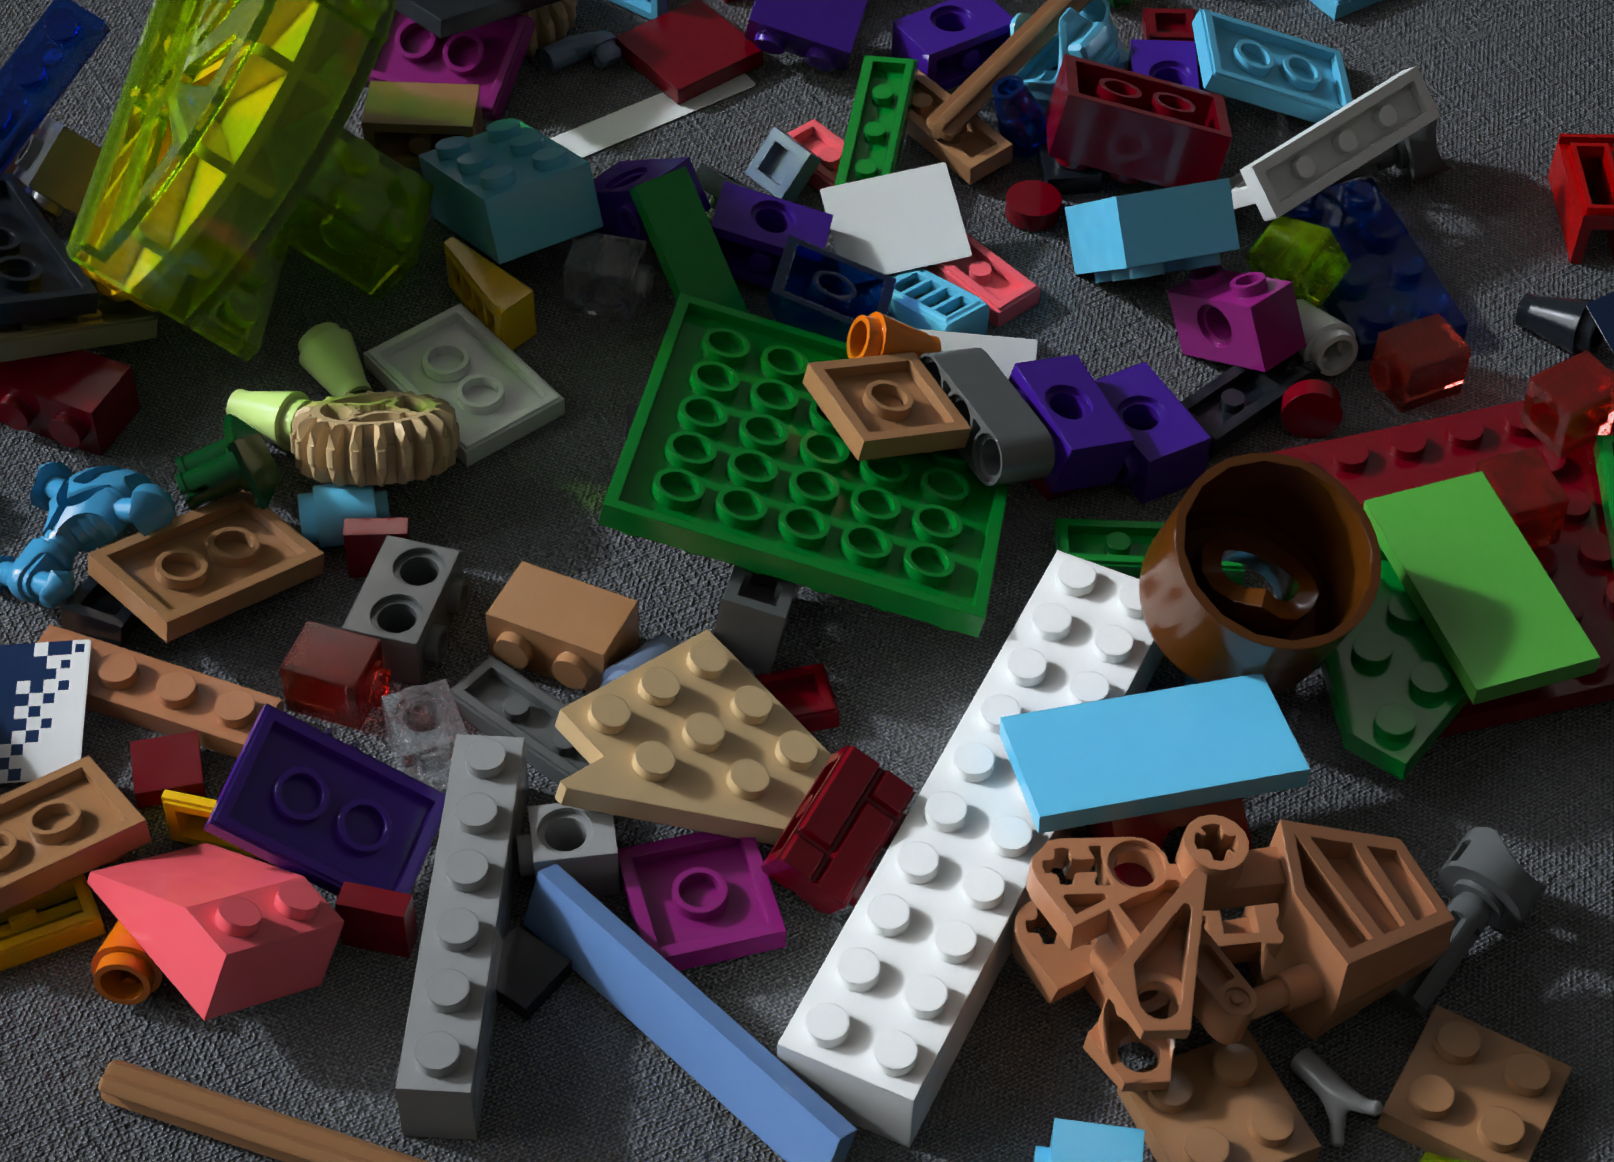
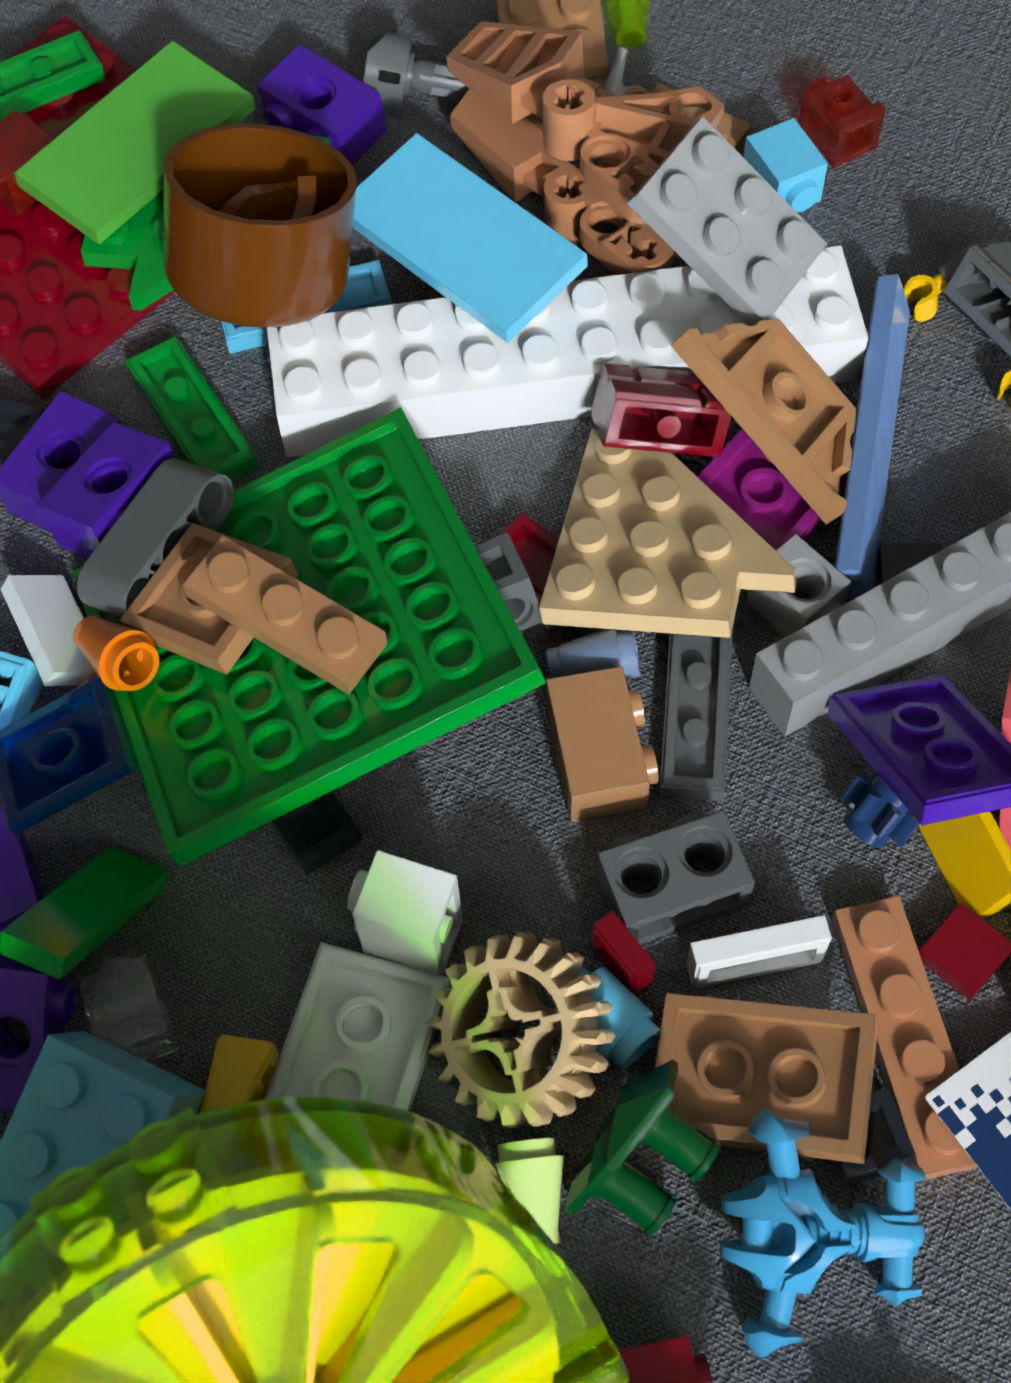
camera: 120 degrees left, 15 degrees up
(313, 598) = (758, 952): none -> white tile
(334, 675) = (786, 876): clear red brick -> none
(377, 919) = (969, 670): dark red tile -> none
(423, 731) = (786, 740): clear brick -> none
(519, 419) = (406, 912): none -> brick
(755, 898) = (781, 404): none -> medium nougat wing
(807, 406) = (285, 614): none -> medium nougat plate
(972, 929) = (727, 223): none -> light grey plate
(1487, 789) = (323, 102): none -> dark purple brick

